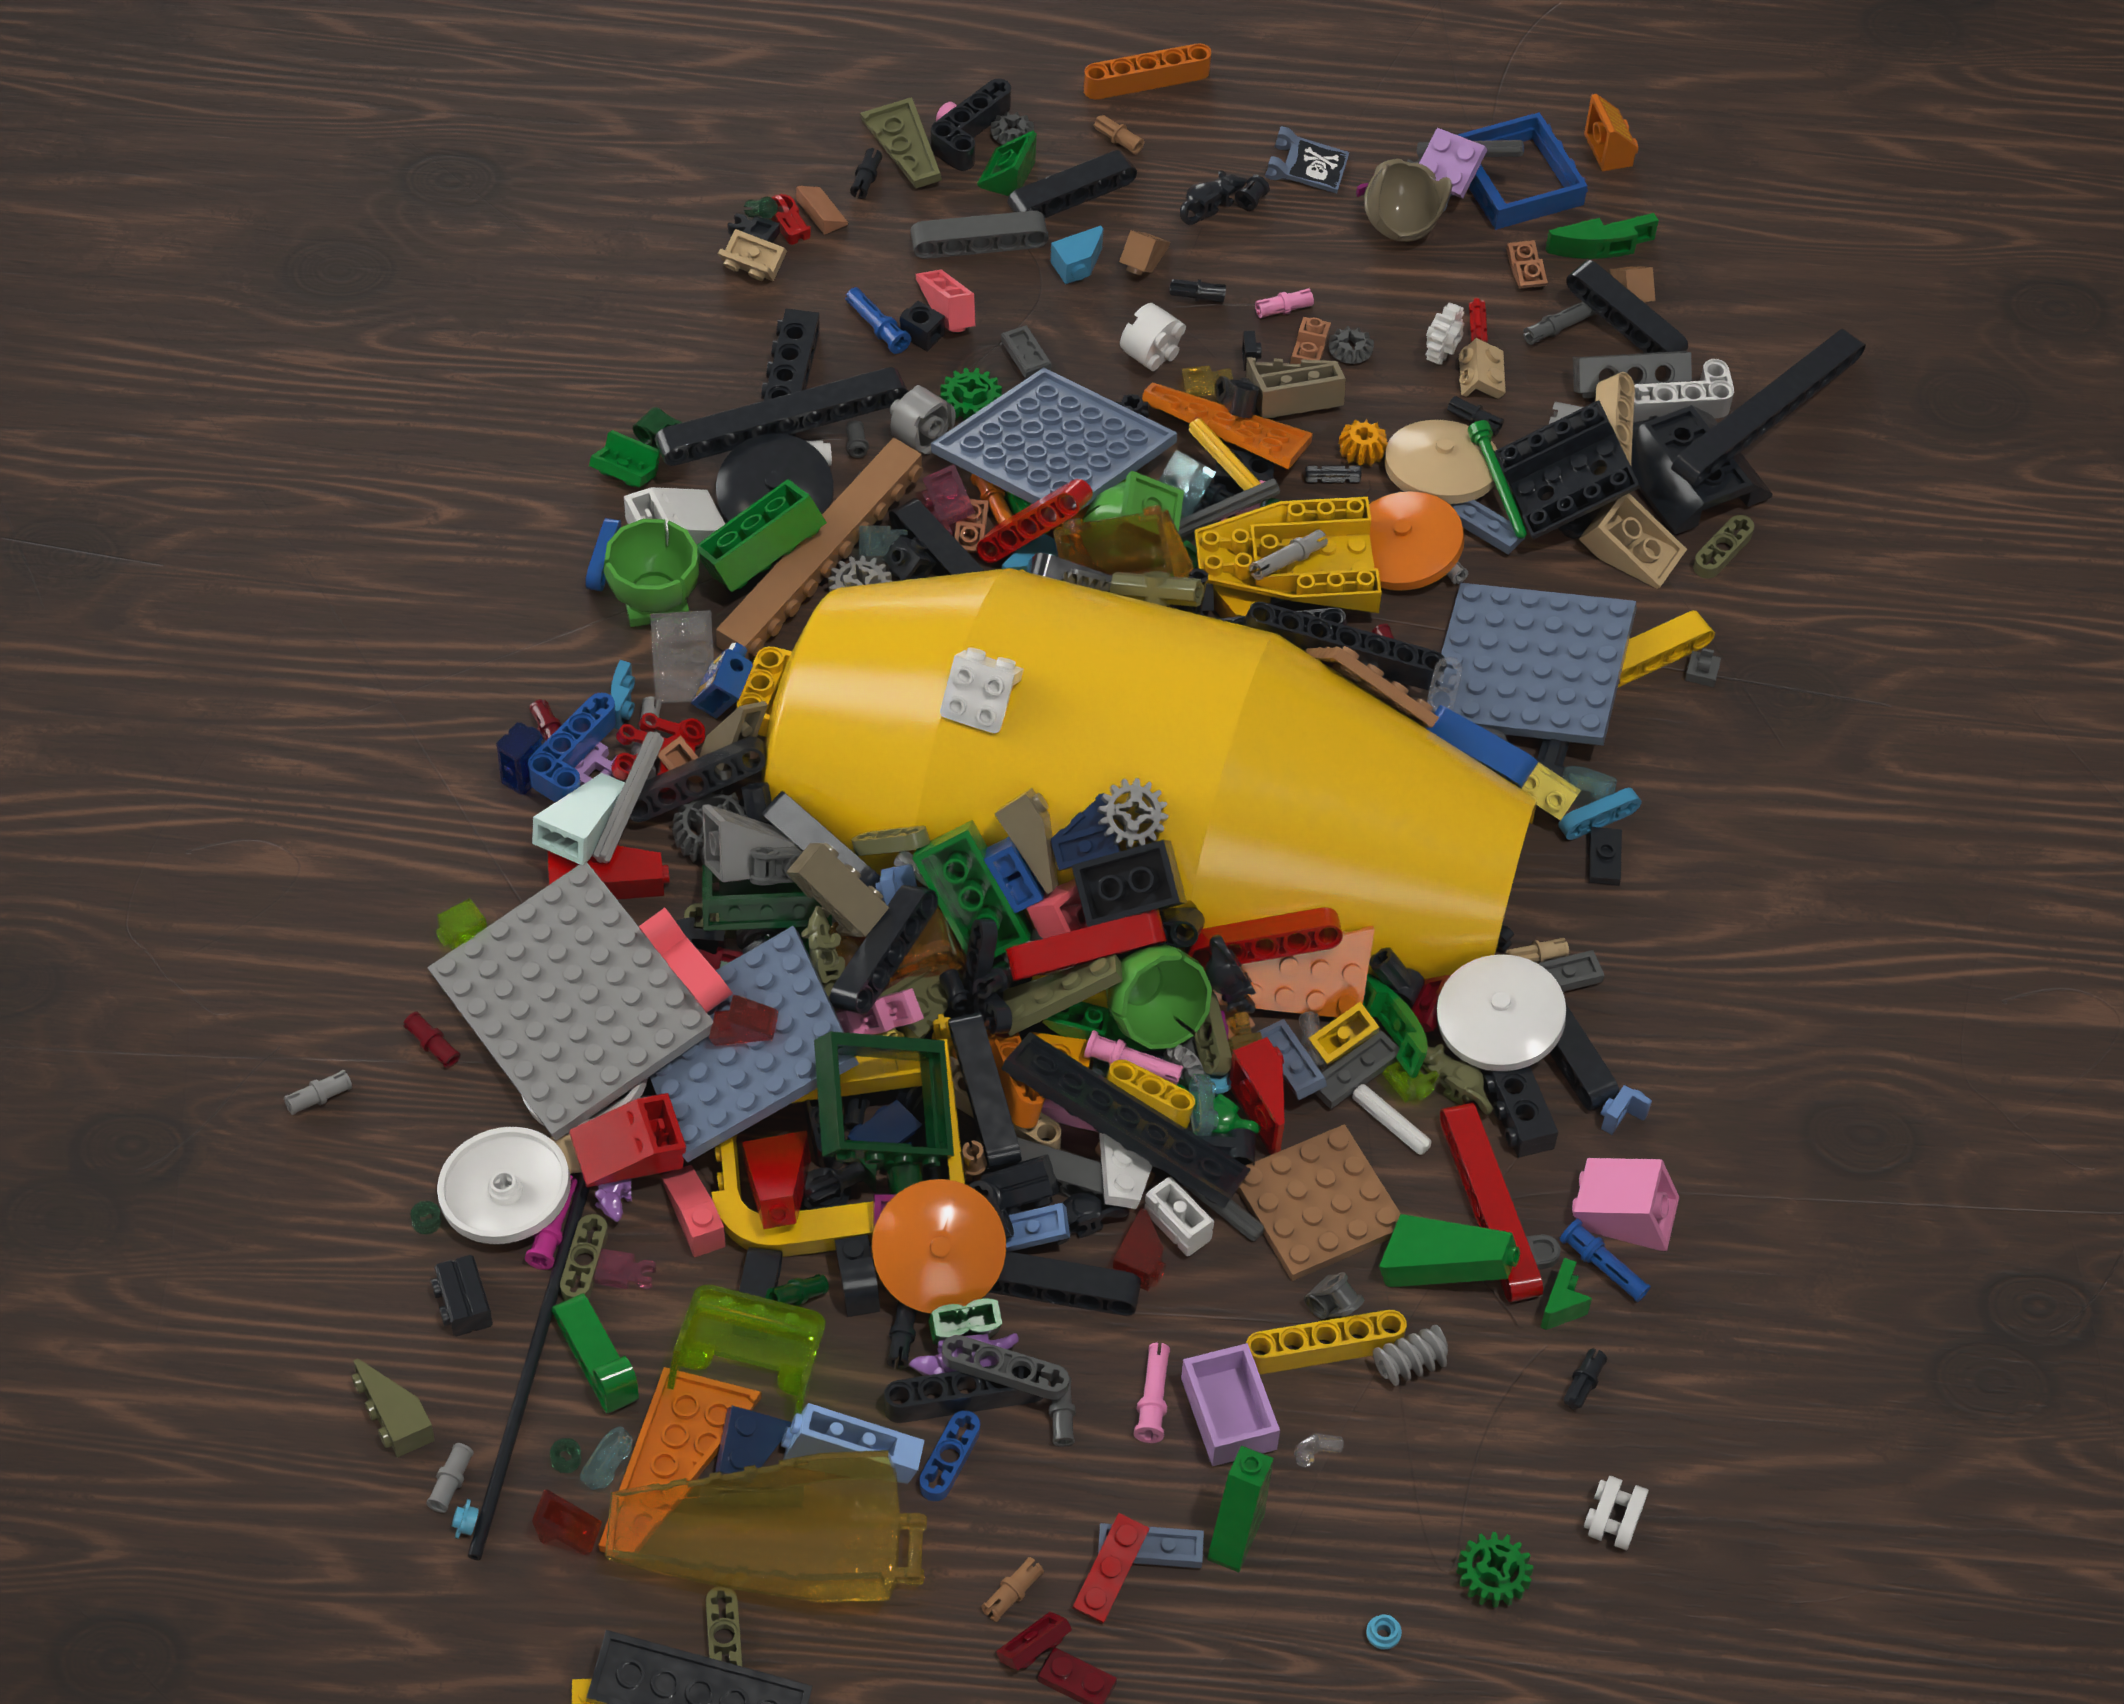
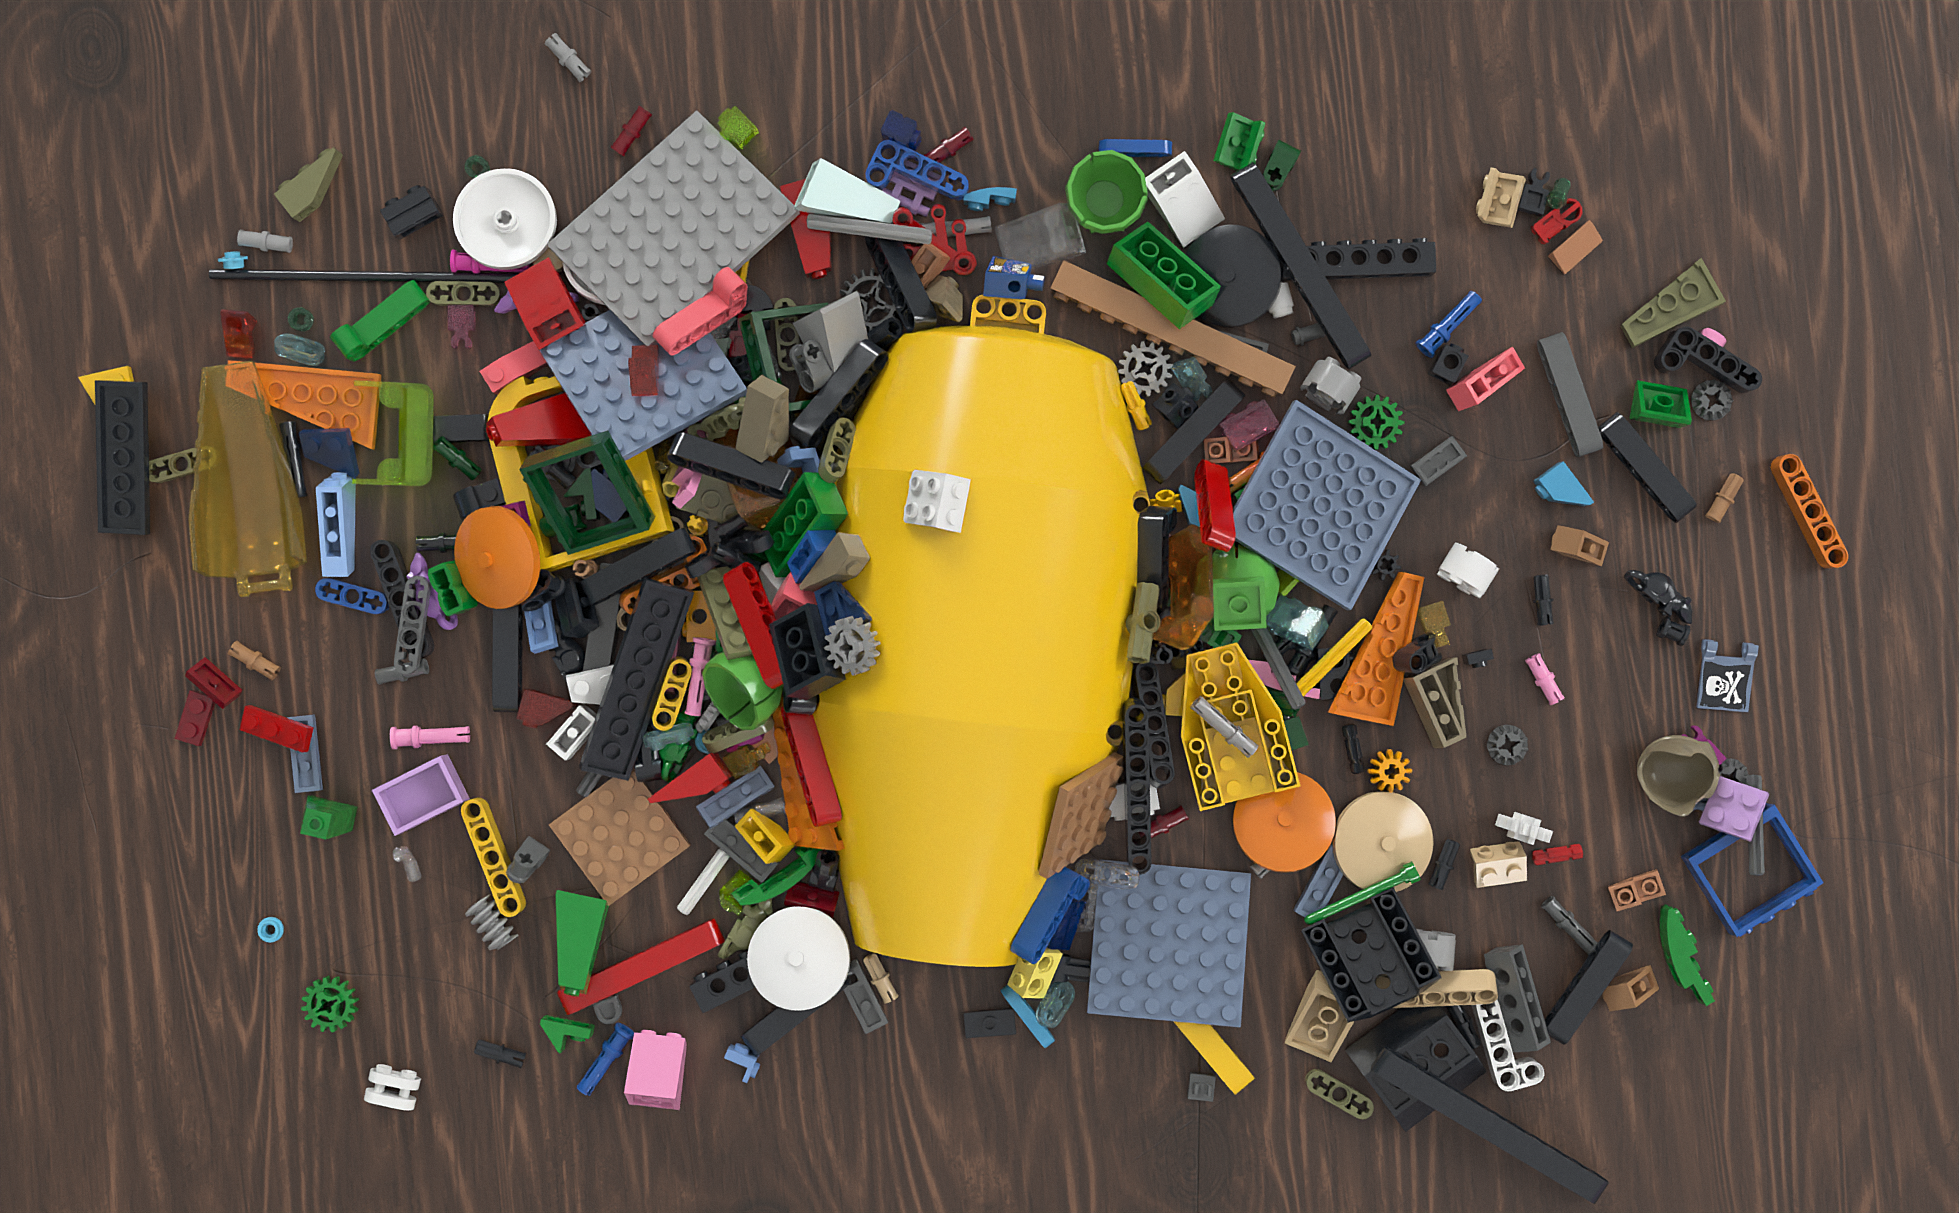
camera: 85 degrees right, 35 degrees up
(866, 173) = (1627, 278): black pin -> none
(1087, 579) = (1138, 571): dark grey gear -> none
(1228, 978) = (774, 741): black animal -> none
(1310, 340) = (1501, 709): nougat slope -> none
(1609, 135) = (1811, 950): orange slope -> none

